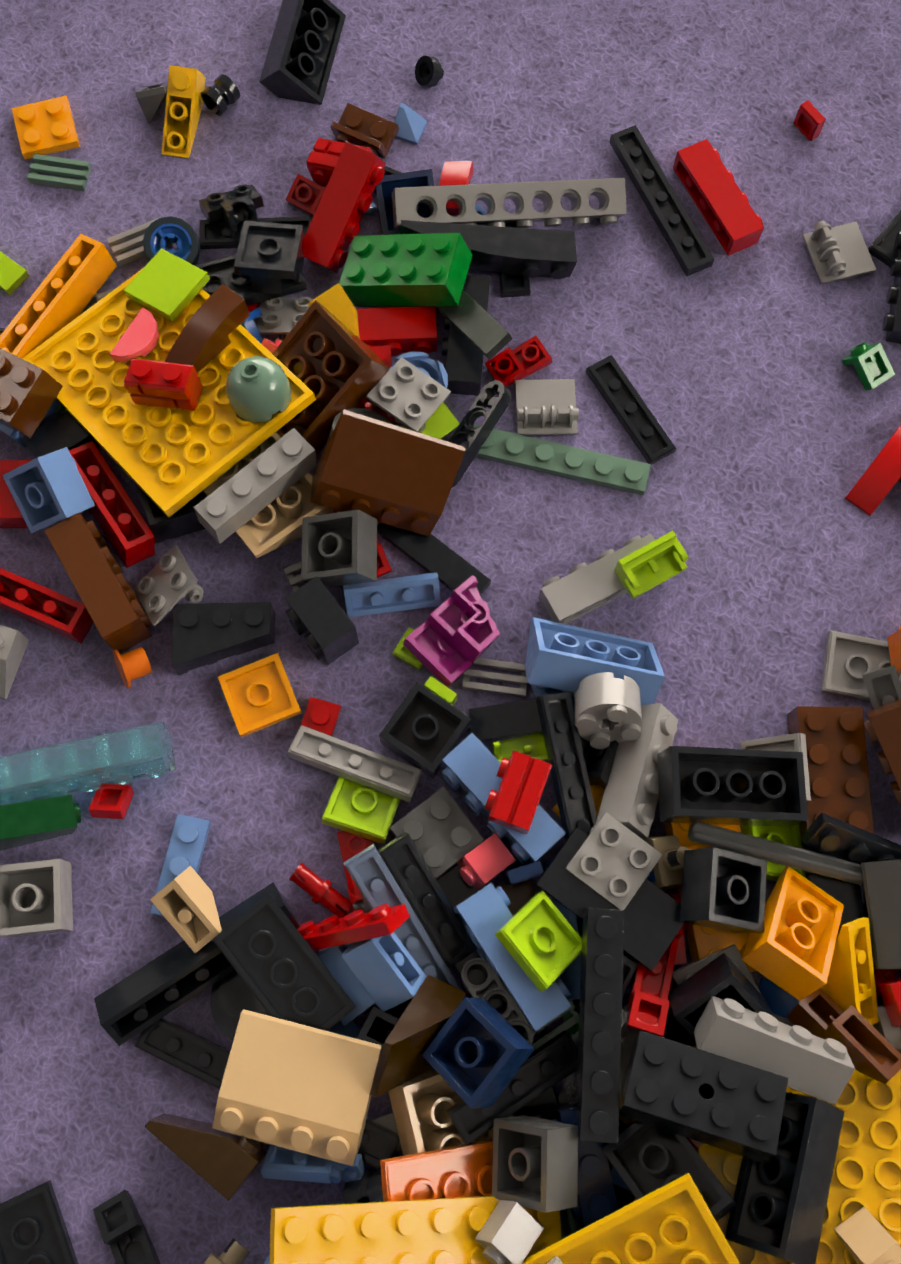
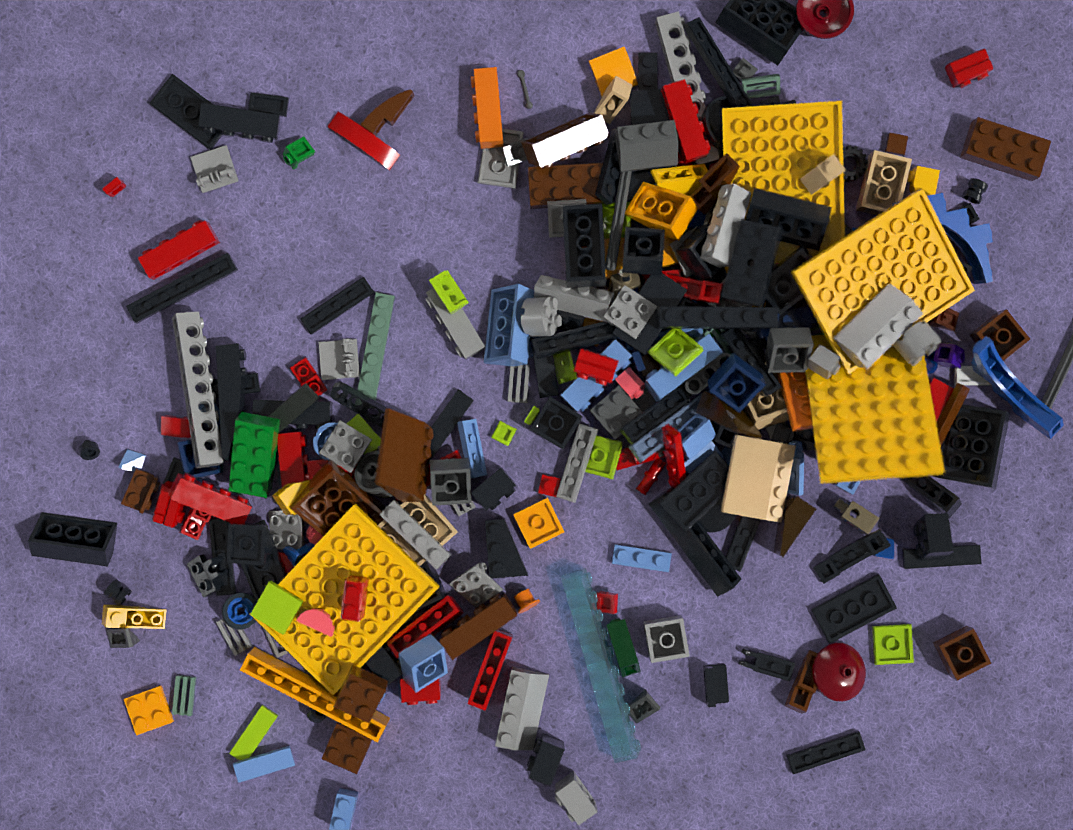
camera: 90 degrees left, 15 degrees up
(189, 909) = (667, 548): tan slope -> none
(209, 329) = (315, 576): reddish brown slope -> none
(258, 389) = (355, 539): sand green cylinder -> none
(454, 634) = (495, 409): magenta slope -> none

